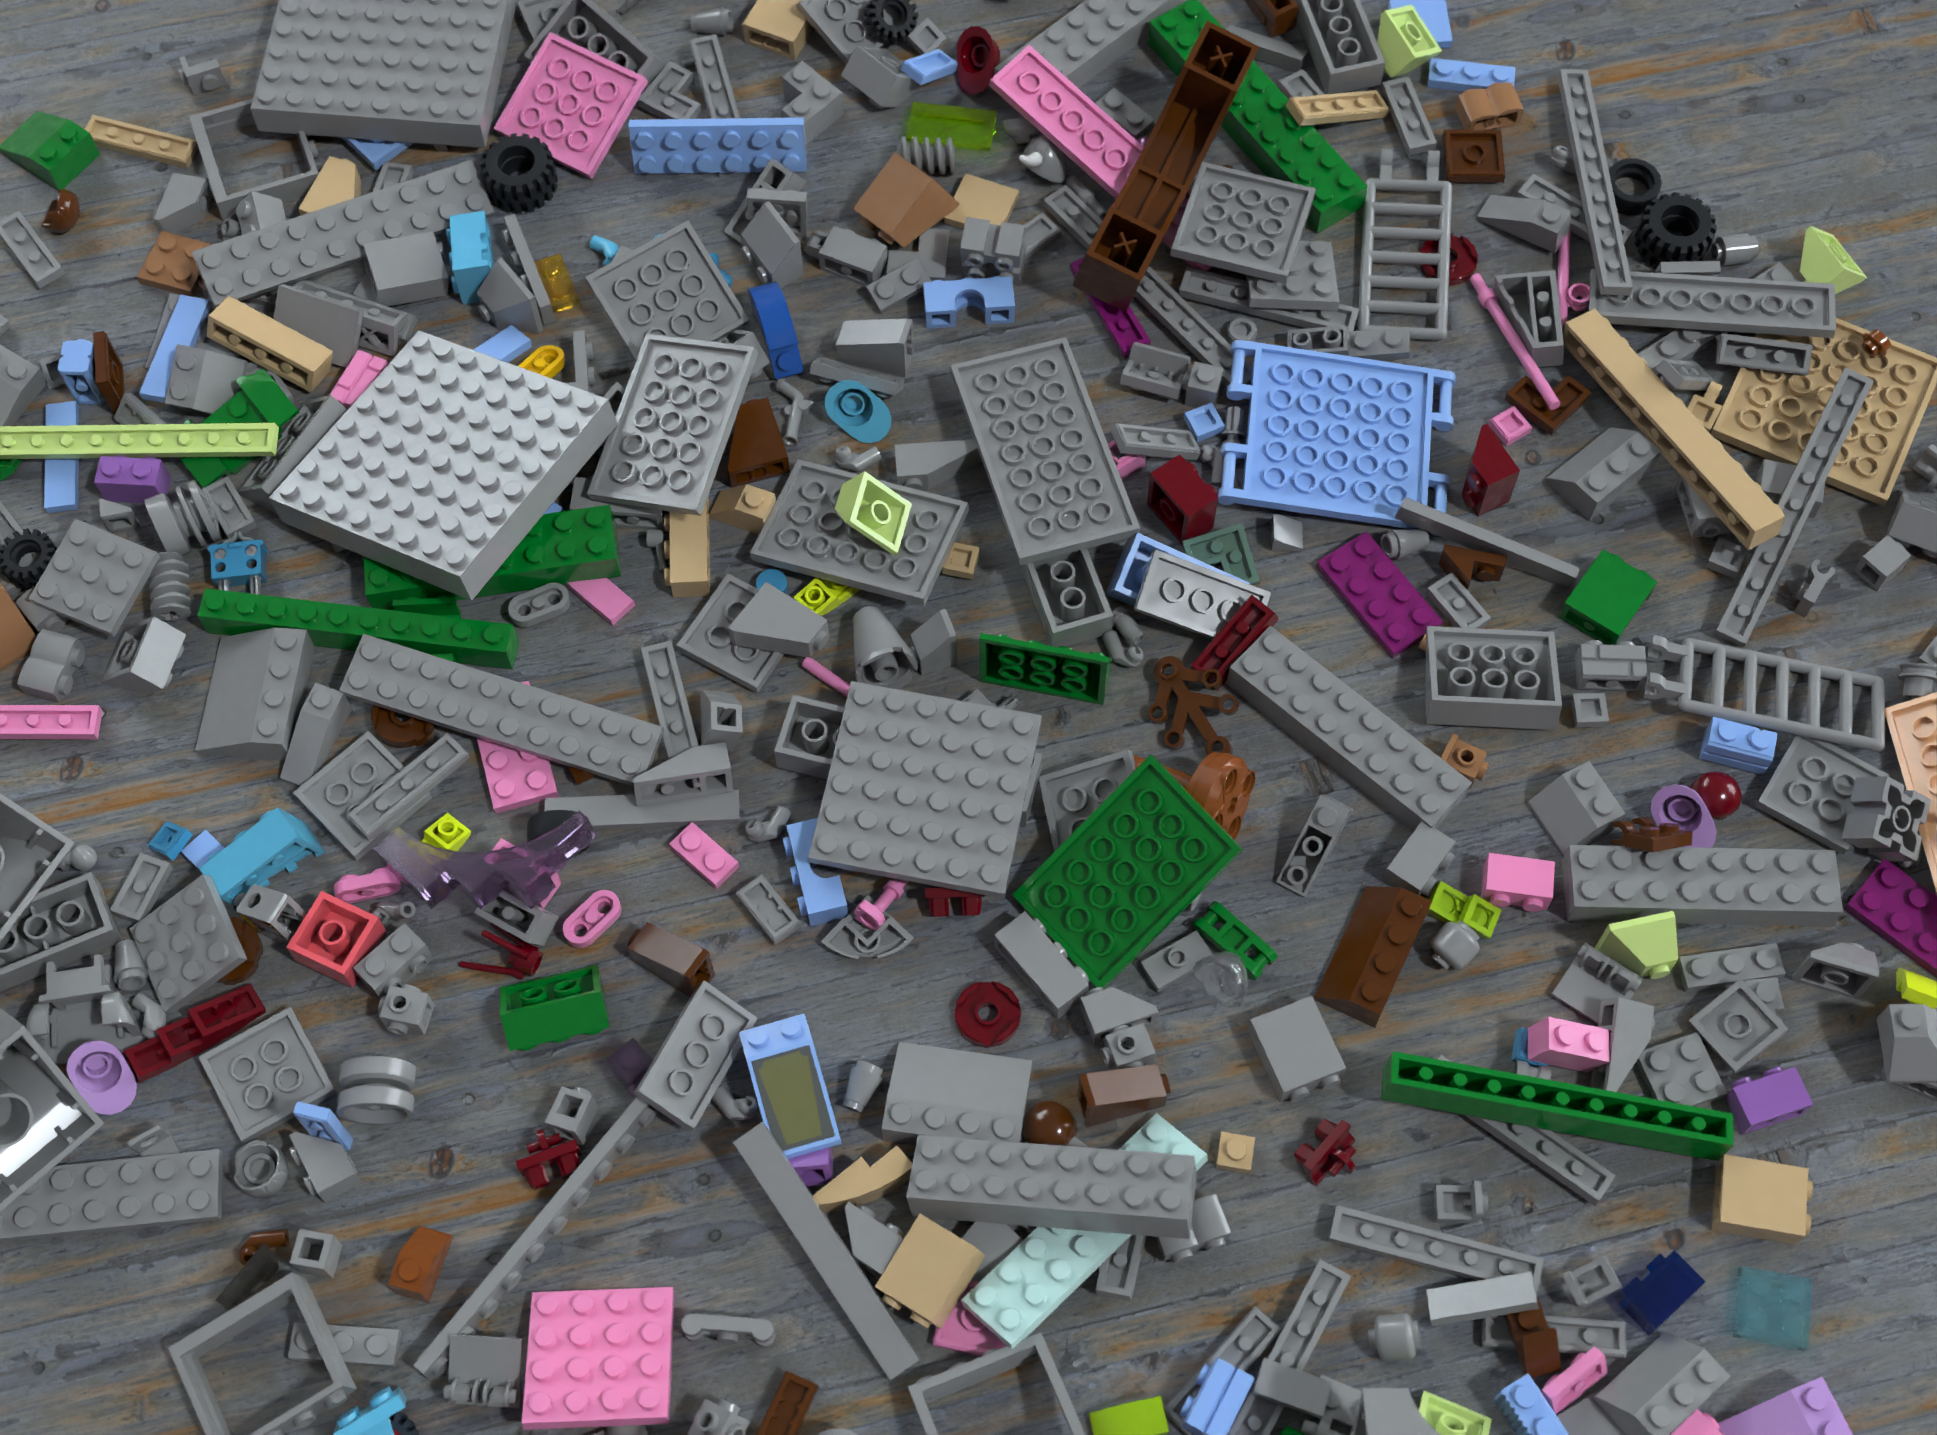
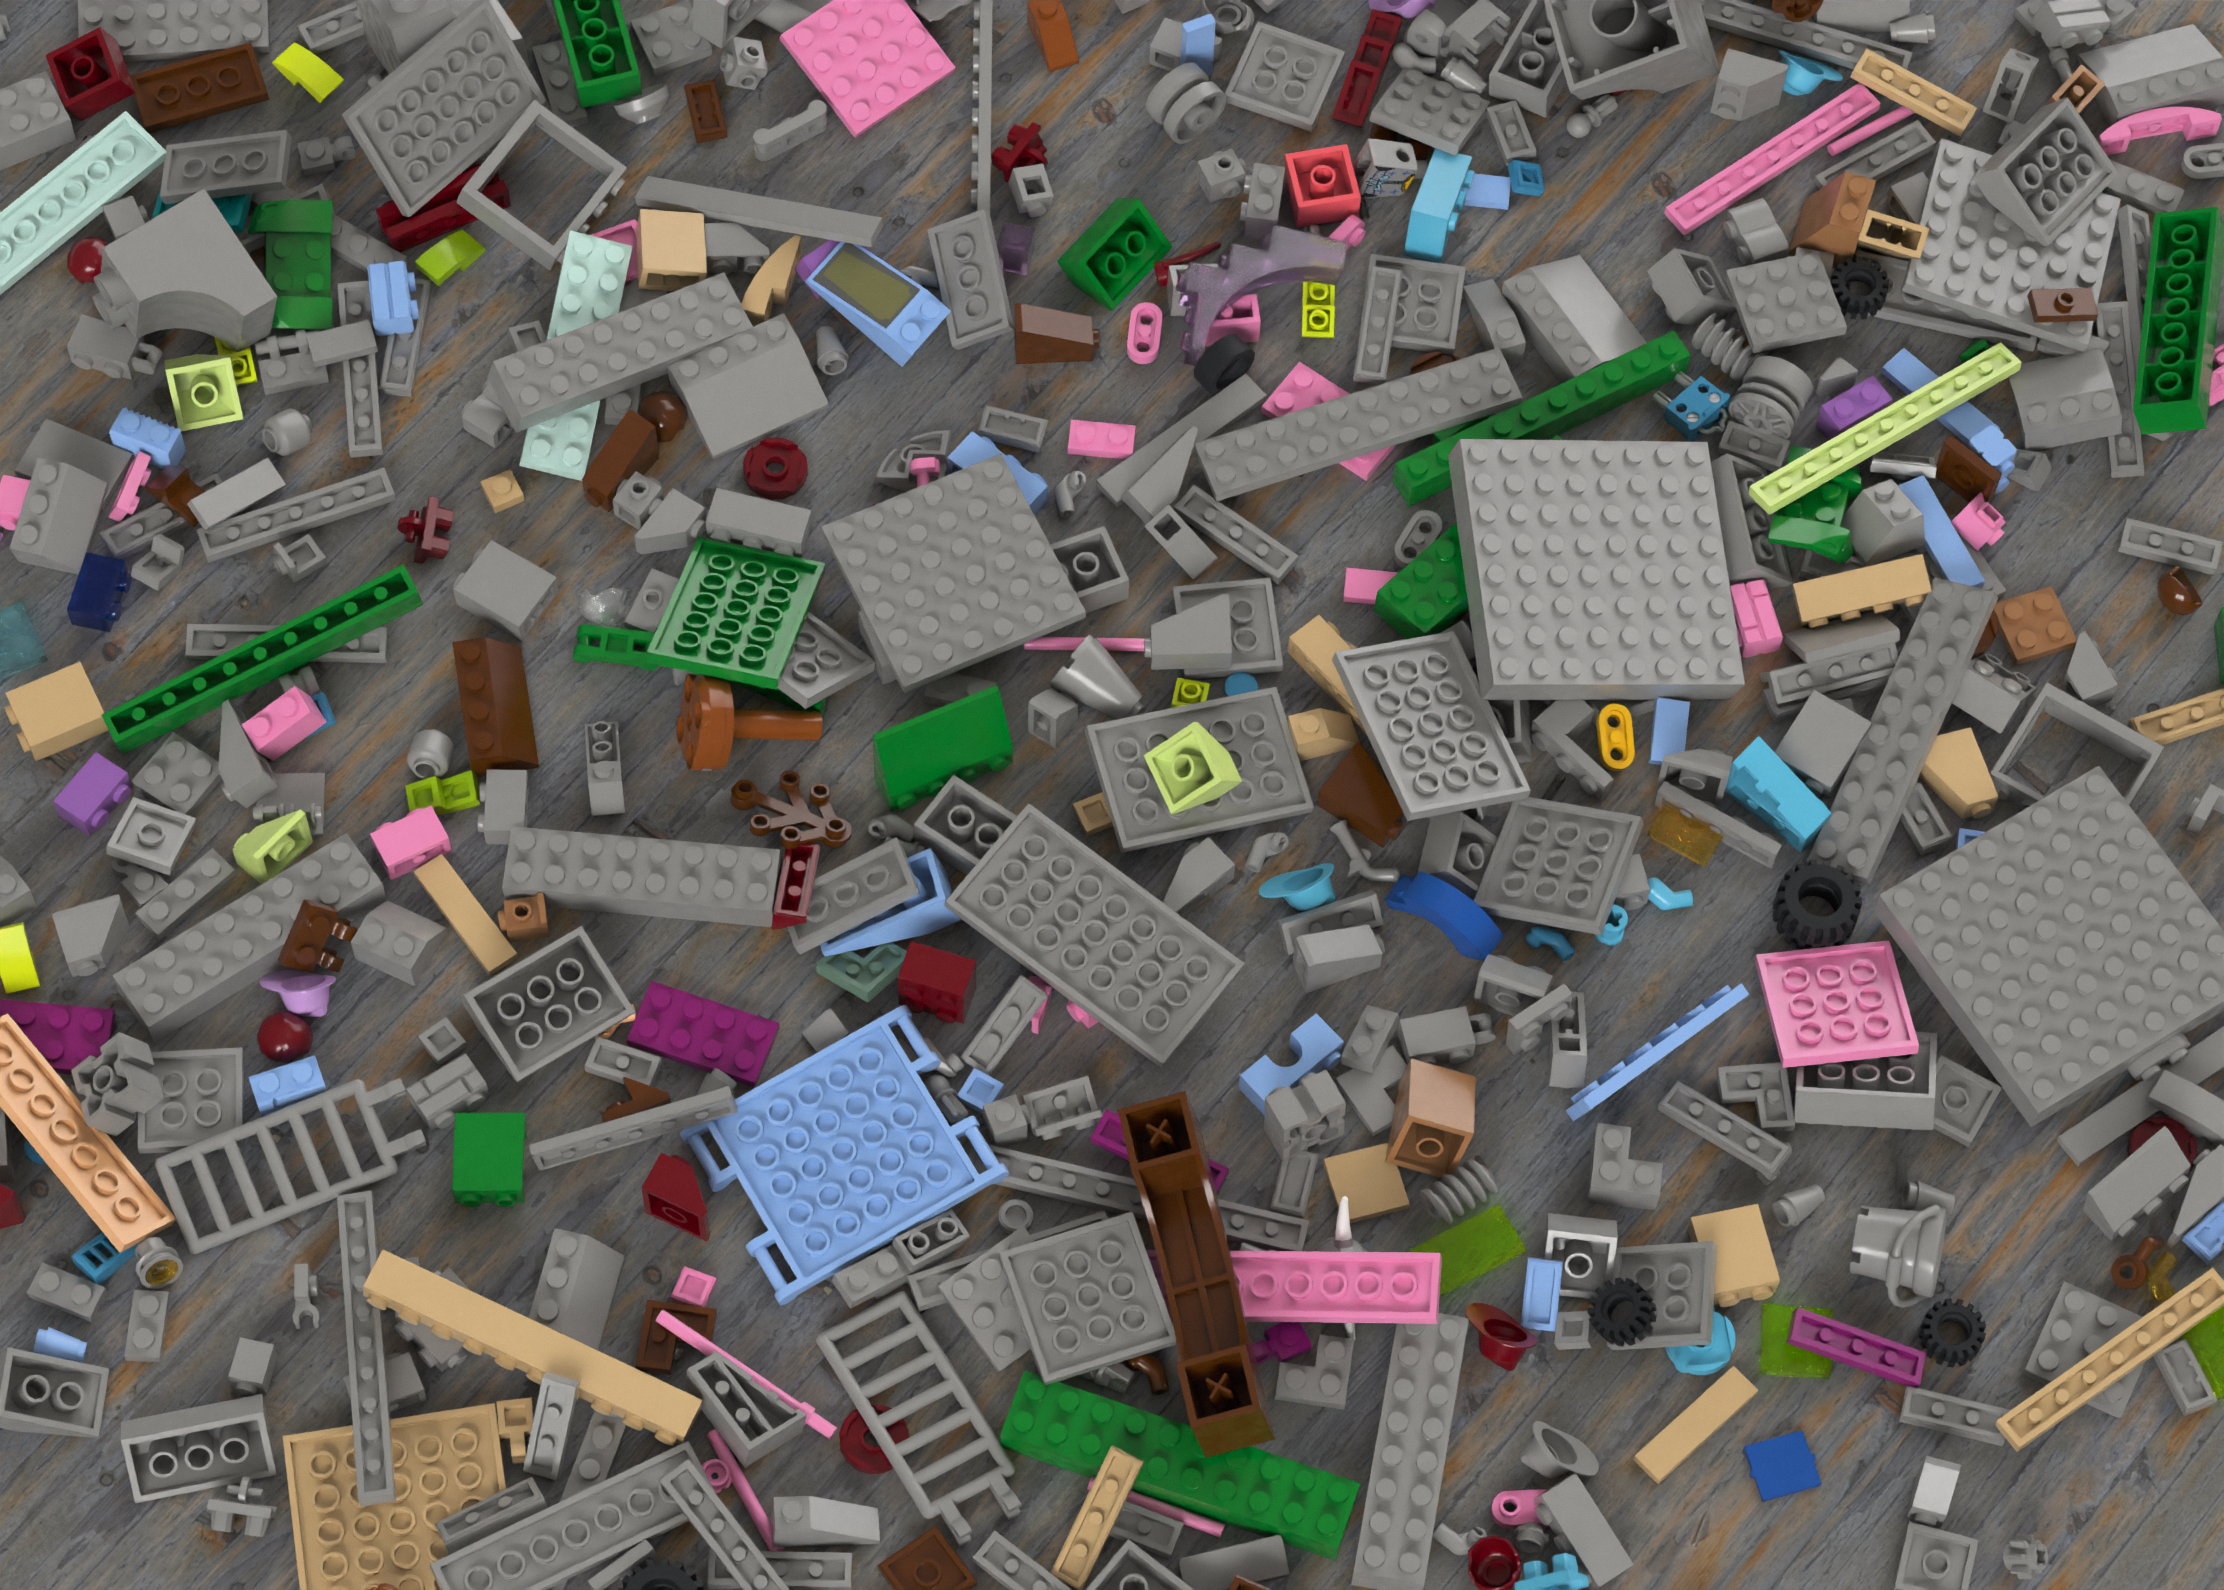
camera: 140 degrees right, 0 degrees up
(134, 337) = (1979, 523): none -> bright pink window
(1506, 798) = (465, 915): none -> tan tile

